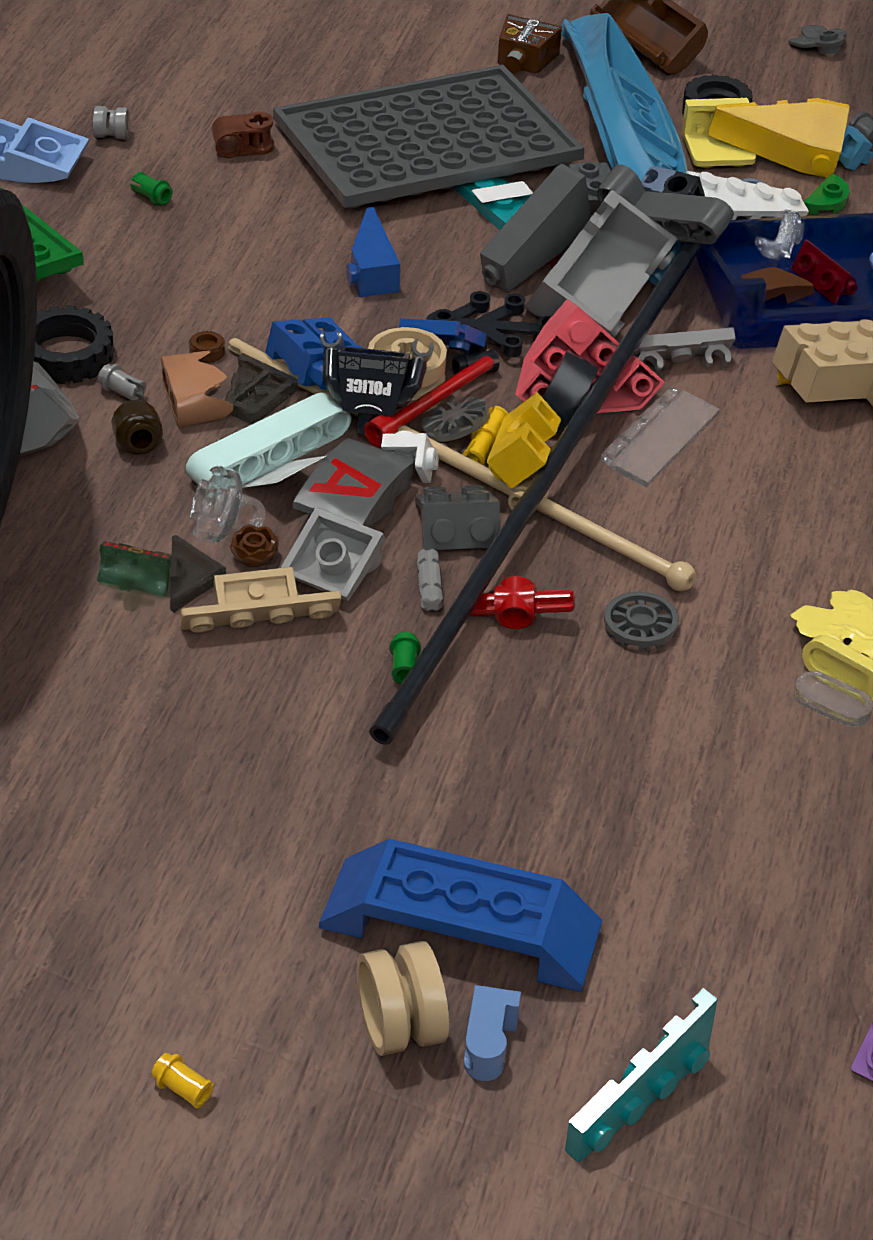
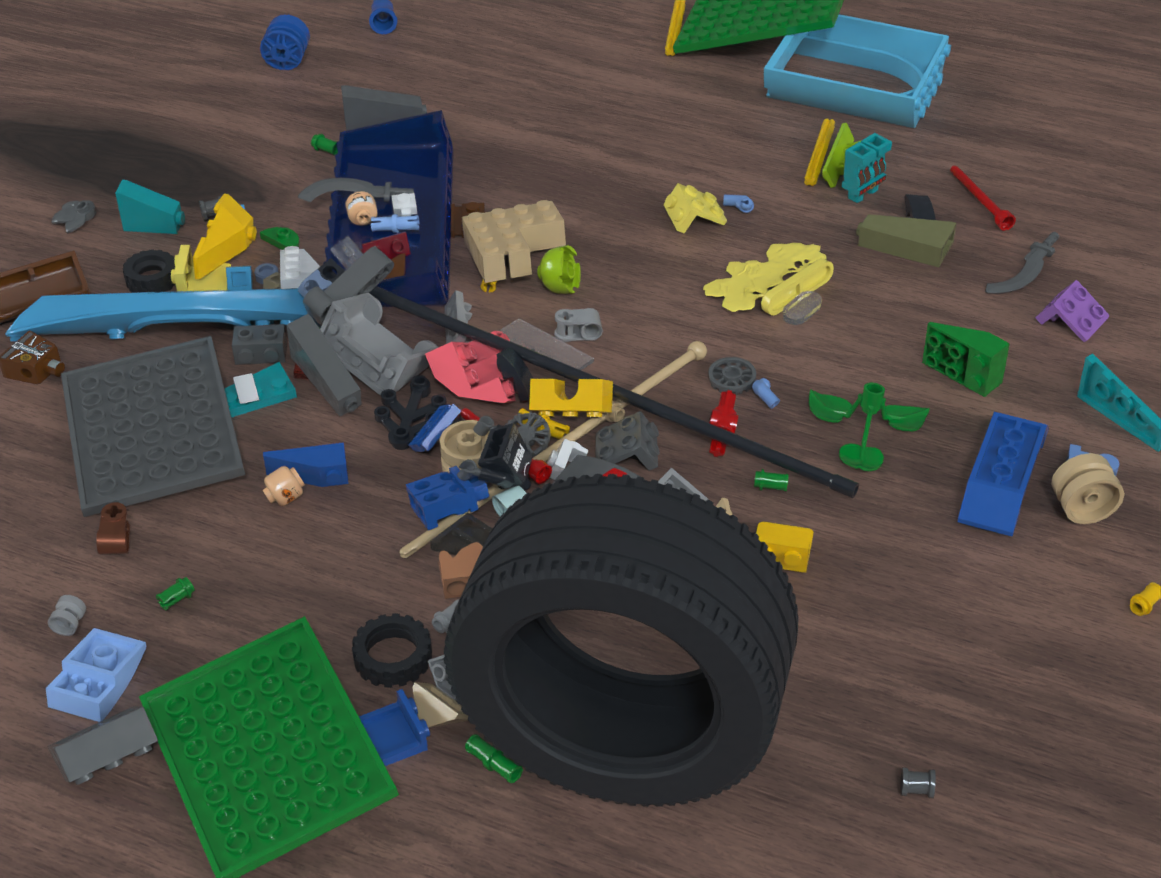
camera: 80 degrees left, 0 degrees up
(210, 342) = (403, 569): reddish brown tile -> none
(263, 666) = (788, 544): none -> yellow bracket
(330, 237) = (283, 486): none -> light nougat head
(429, 580) = (691, 465): light grey axle -> none
(579, 809) = (834, 408): none -> green plant
(604, 647) = (762, 389): none -> medium blue arm
(709, 455) = (579, 324): none -> light grey piece
(709, 873) = (966, 356): none -> green slope
(725, 163) = (239, 278): none -> dark azure tile
(820, 428) = (559, 270): none -> lime cylinder
(832, 66) = (147, 210): none -> teal slope

